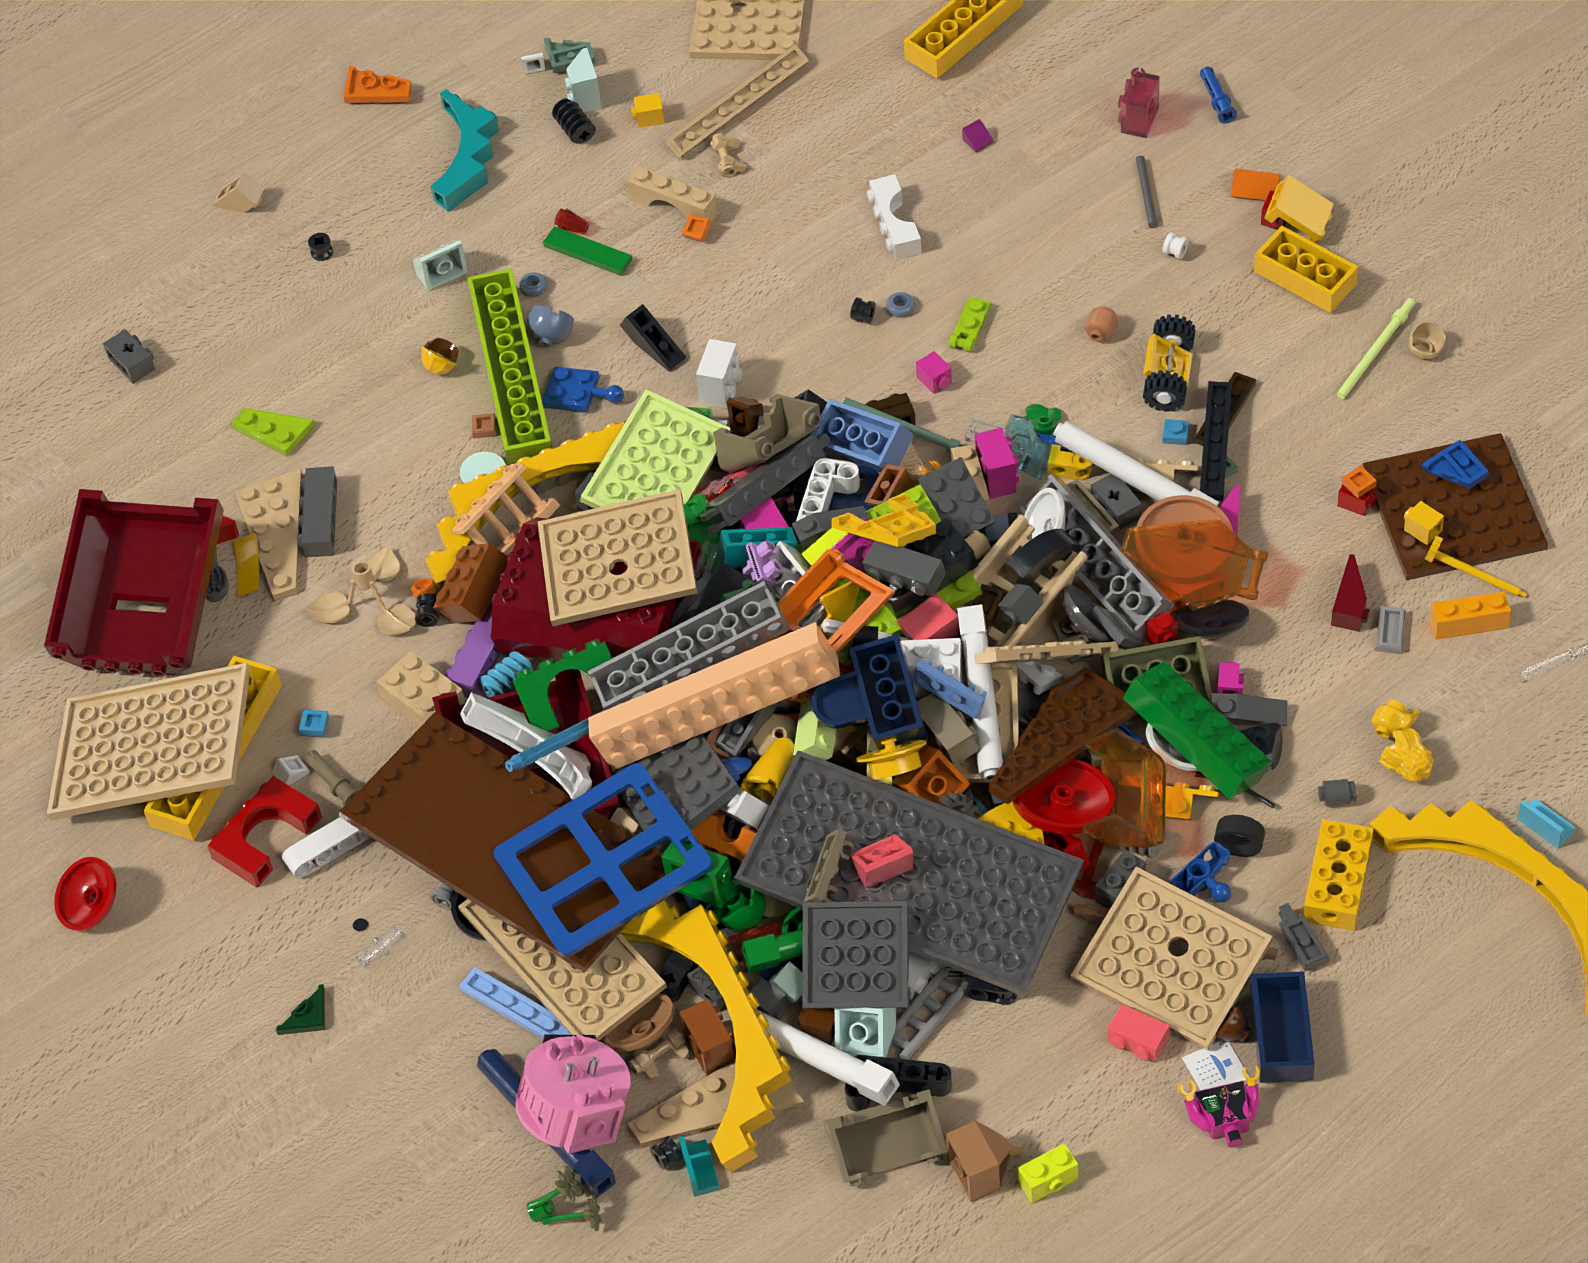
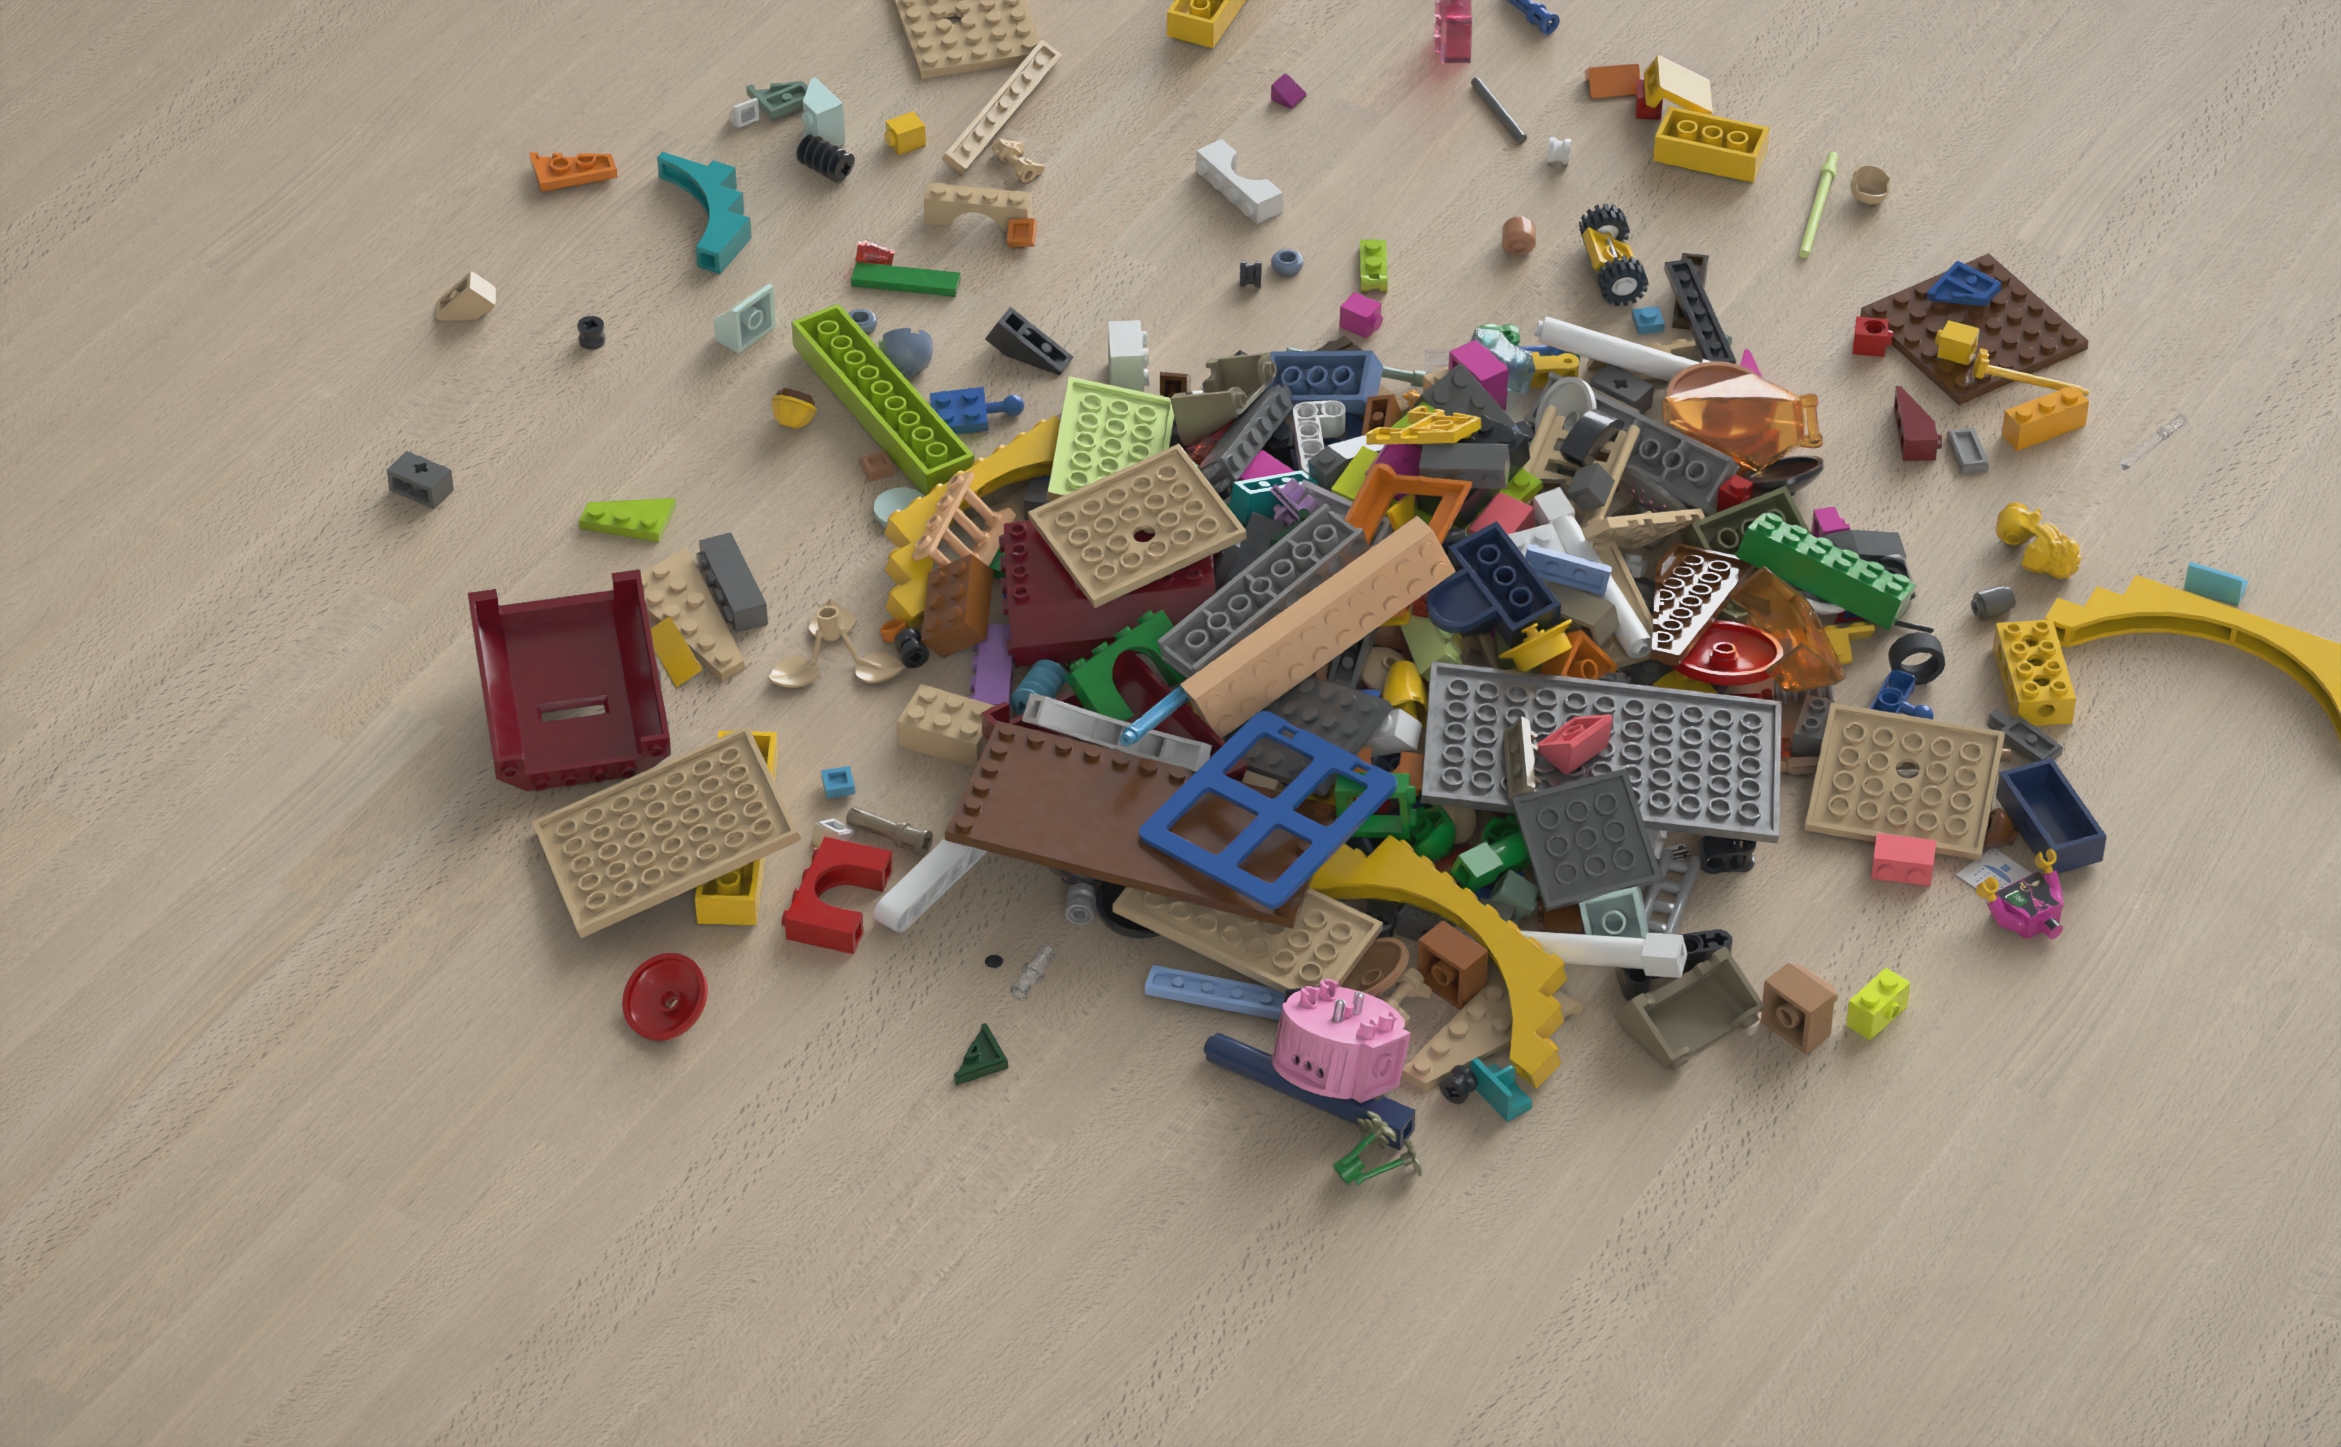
camera: 25 degrees left, 10 degrees down
(1359, 481) = (1874, 317): orange plate -> none

